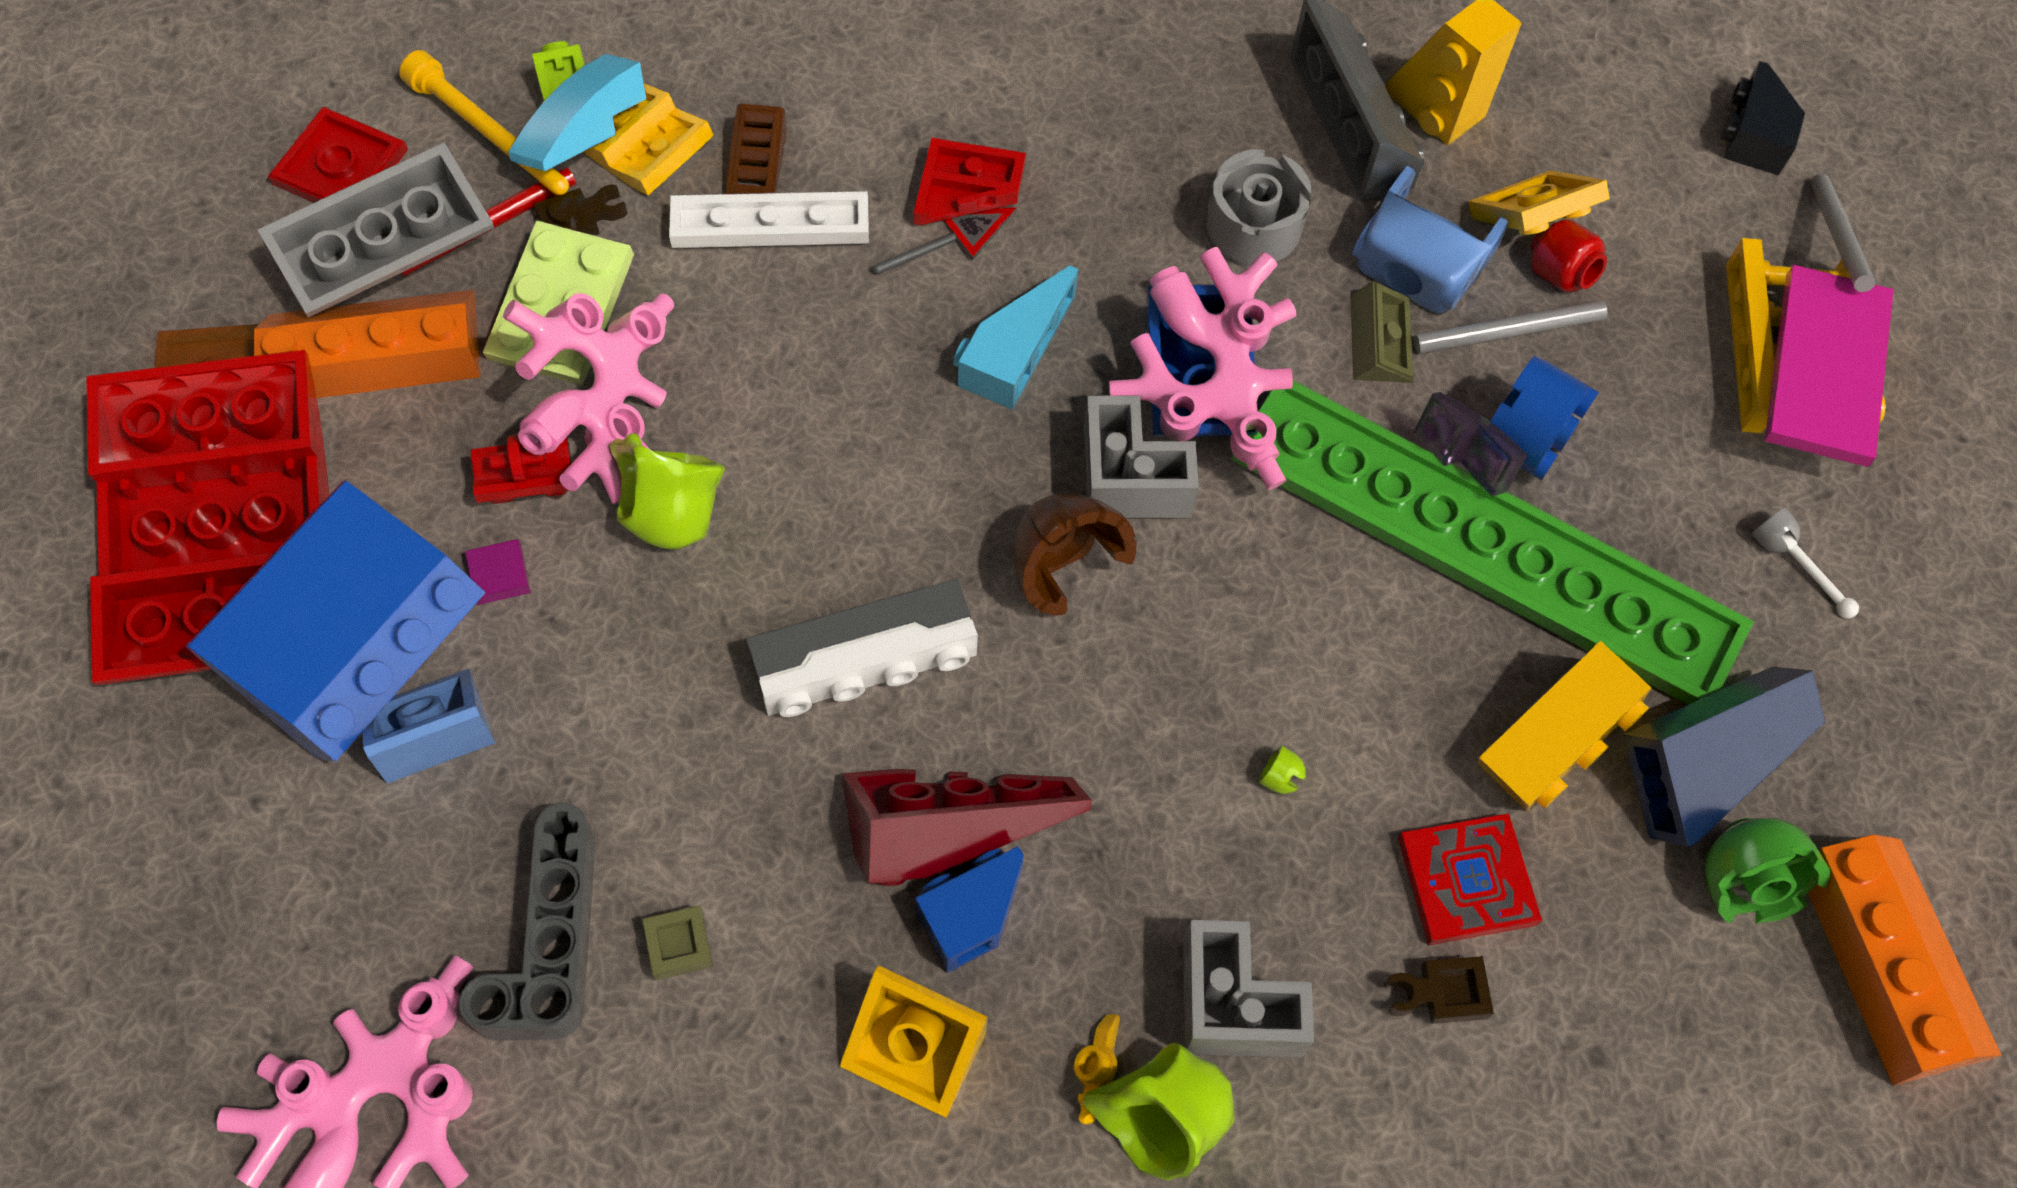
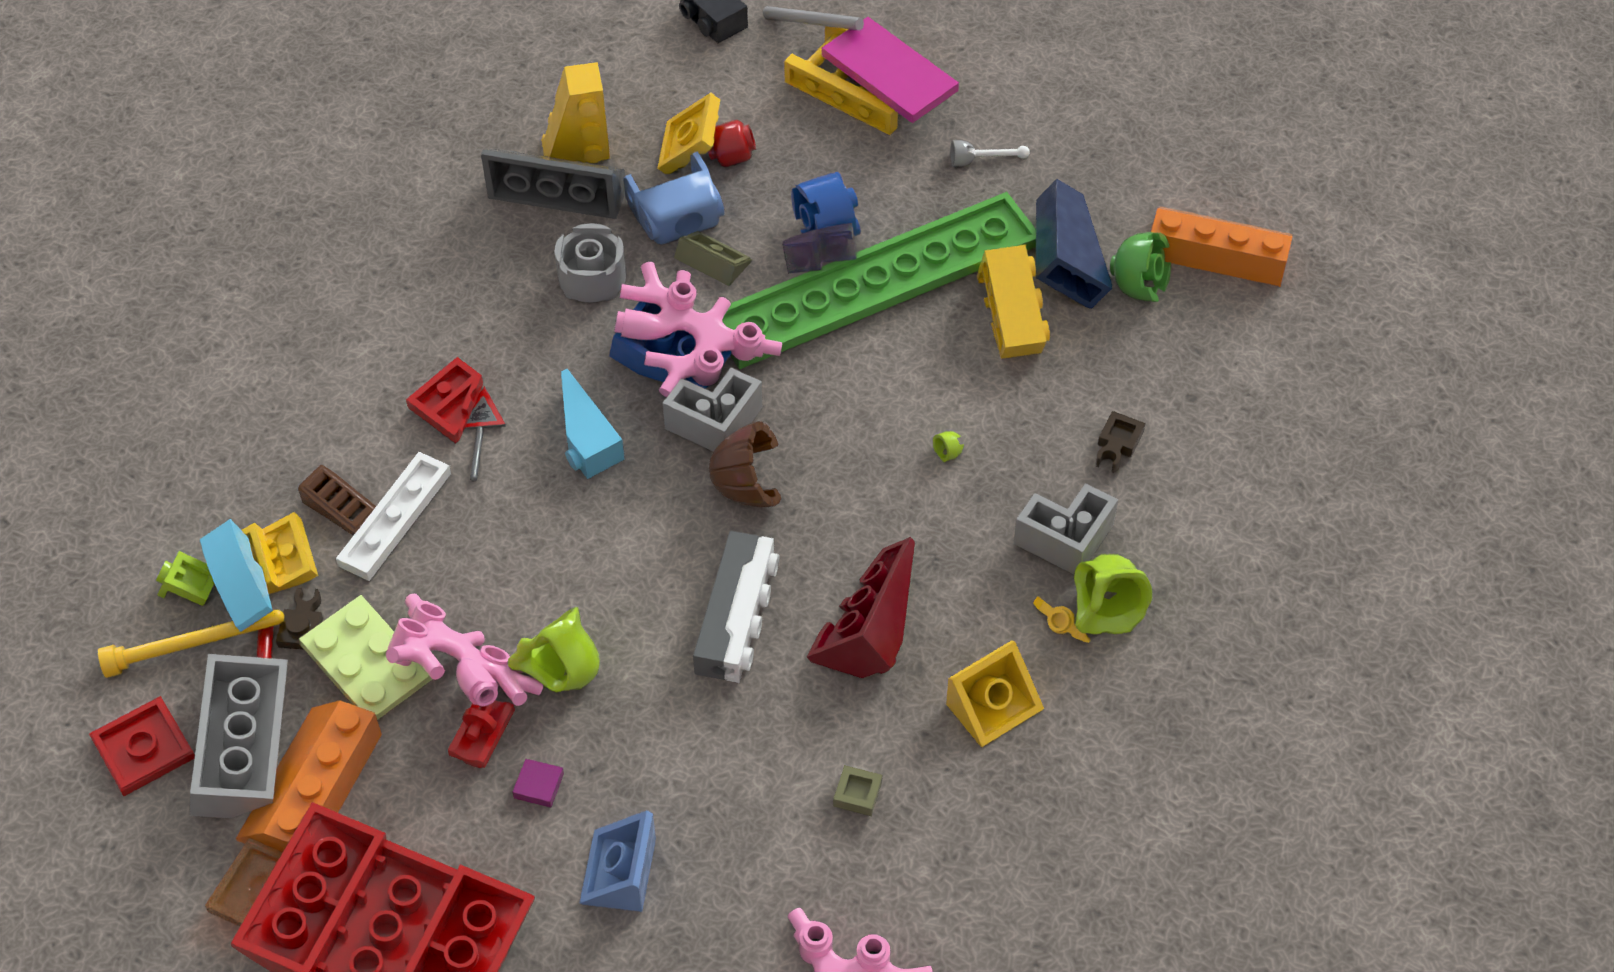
camera: 55 degrees left, 10 degrees down
(336, 621) = (532, 867): blue slope -> none
(544, 924) = (756, 813): dark grey beam -> none
(970, 911) = (936, 632): blue slope -> none
(1469, 879) = (1063, 397): red tile -> none
(1510, 327) = (751, 197): light grey bar -> none

